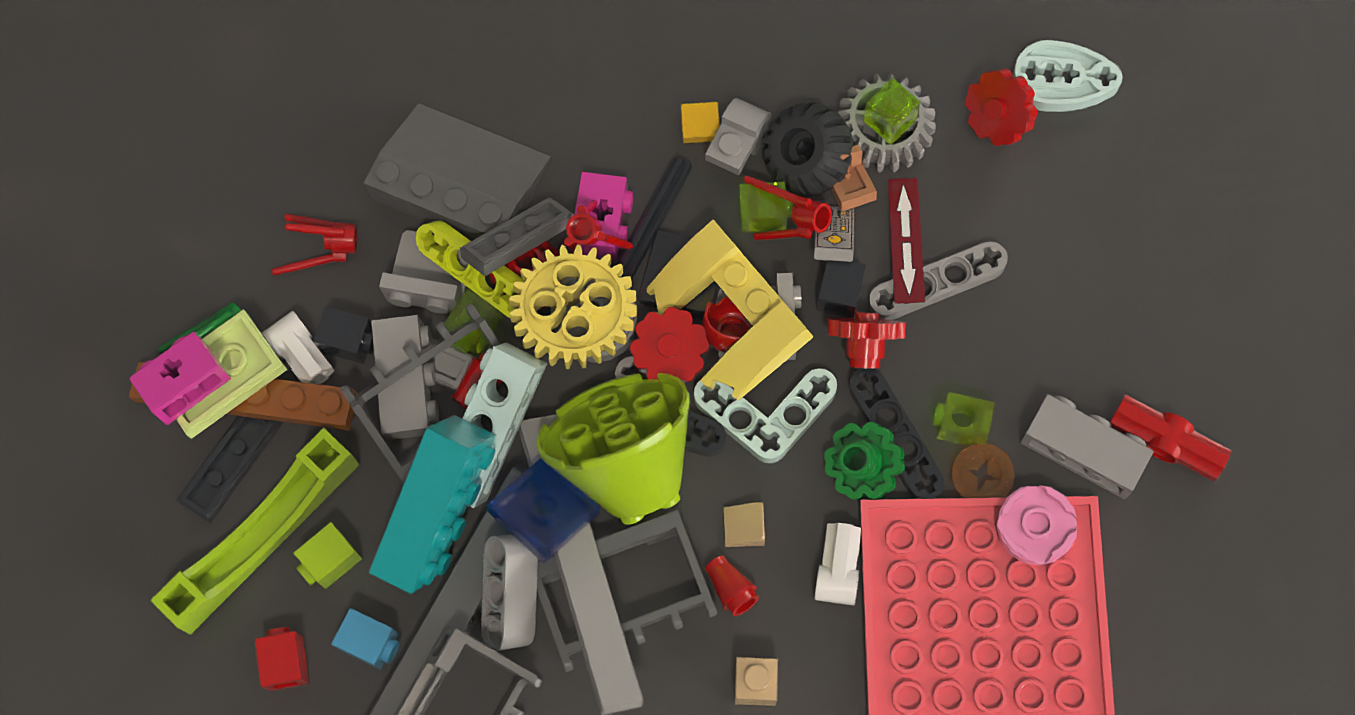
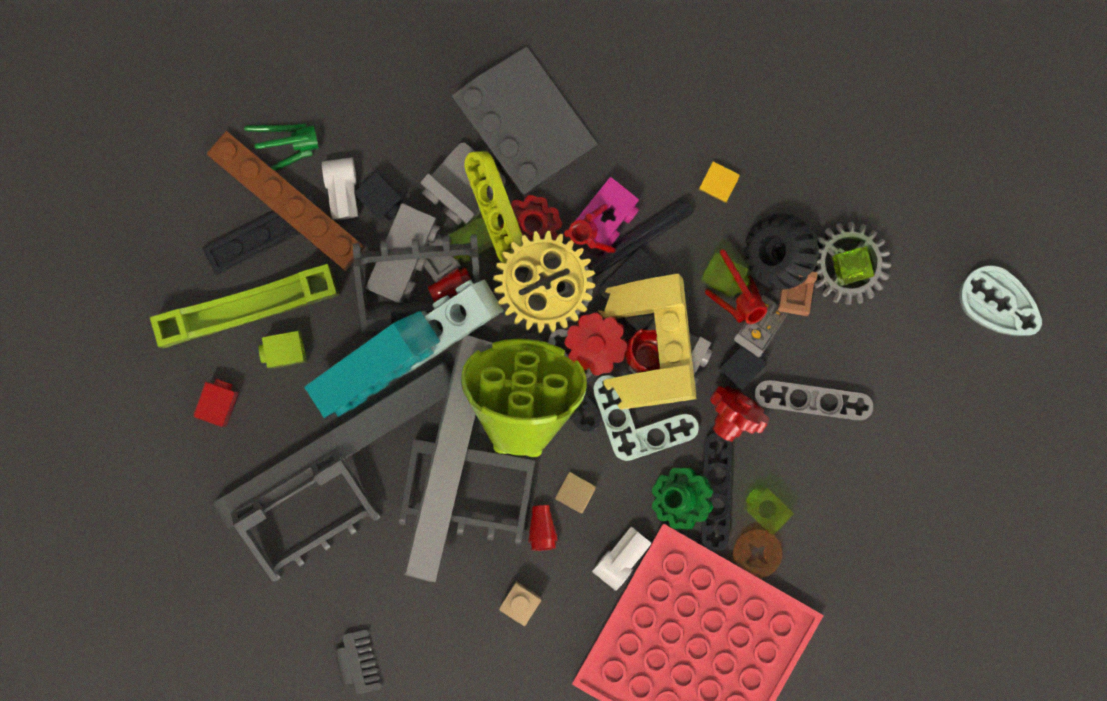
camera: 30 degrees right, 15 degrees up
(173, 395) = (262, 178): dark pink brick -> none
(247, 361) = (275, 178): yellowish green tile -> none
(338, 237) = (412, 120): red plant -> none
(366, 639) = (279, 423): dark azure brick -> none
(508, 593) = (391, 449): light grey beam -> none
(516, 236) = (536, 203): dark grey tile -> none
(543, 510) = (442, 412): clear blue tile -> none
(738, 135) = (737, 214): light grey brick -> none
(906, 241) = (809, 358): dark red sticker -> none
(1001, 107) = (936, 303): red plant -> none
(1037, 525) = (769, 611): bright pink tile -> none
(1087, 446) = (840, 577): light grey brick -> none
(1171, 438) = (899, 604): red piece -> none

